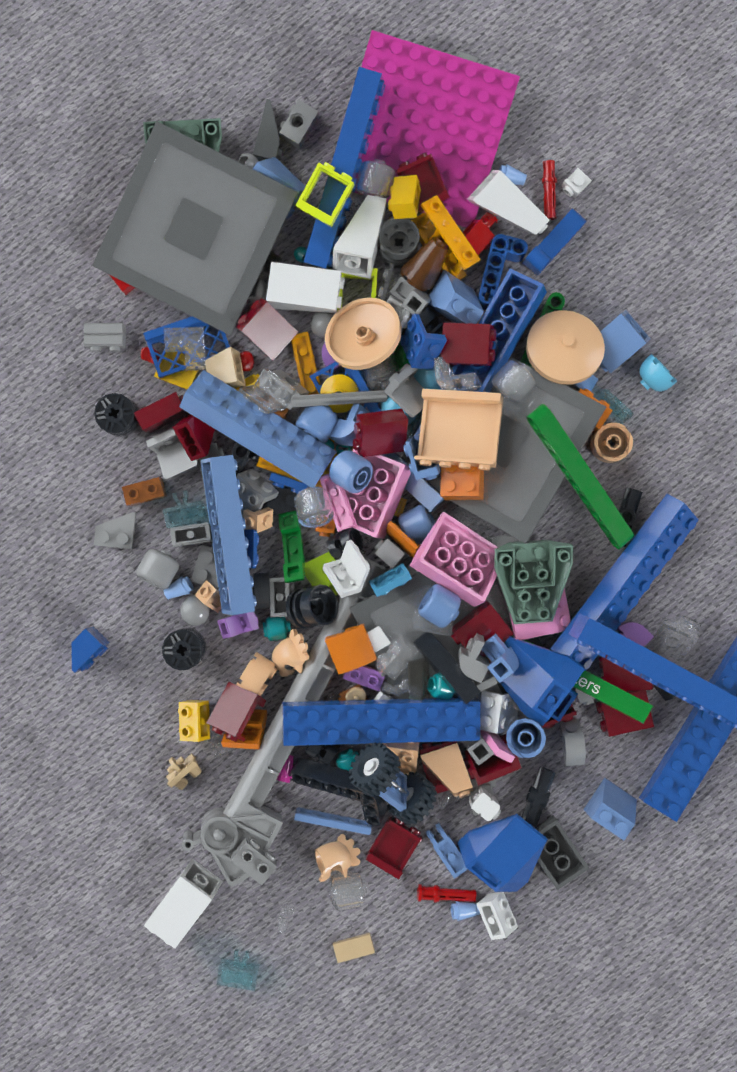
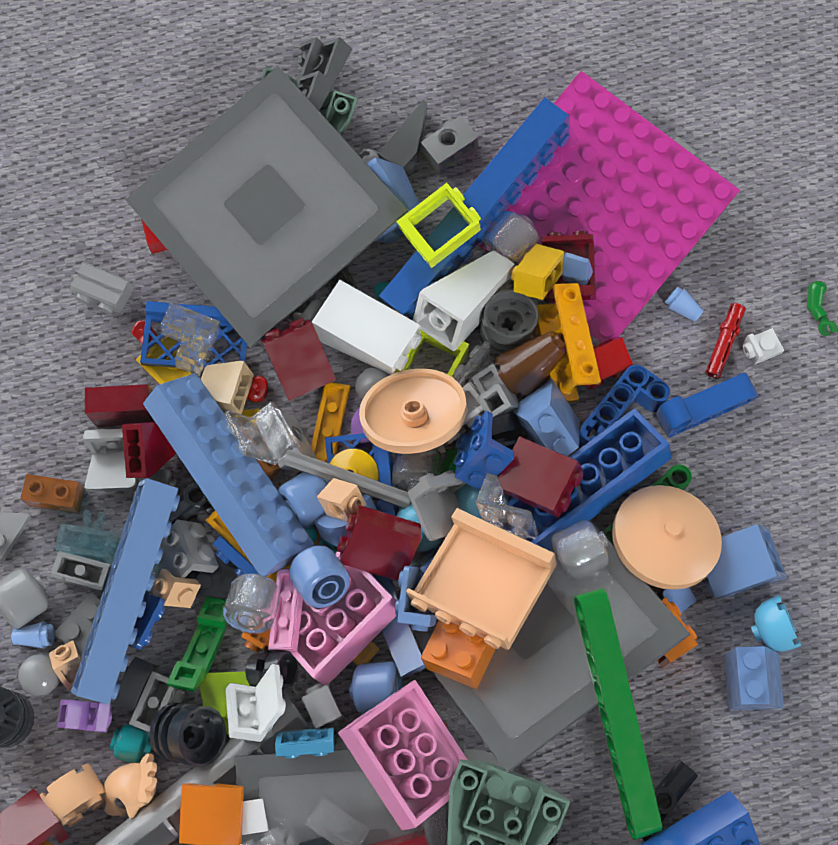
camera: 25 degrees right, 15 degrees down
(126, 420) = (66, 399): black wheel -> none
(181, 105) = (320, 67): none -> dark grey wedge
(342, 415) = (340, 499): none -> light nougat brick
(402, 539) = (347, 694): orange slope -> none
(429, 184) = (576, 269): none -> medium blue slope
(439, 606) = (354, 807): medium blue head -> none
(489, 219) = (634, 345): red piece -> none
(505, 200) = (665, 331): white slope -> none
(602, 140) = (814, 305): none -> green arm
(619, 435) = (695, 685): light nougat brick -> none
(620, 412) = (707, 651): clear light blue slope -> none
(654, 416) = (753, 679): none -> medium blue slope

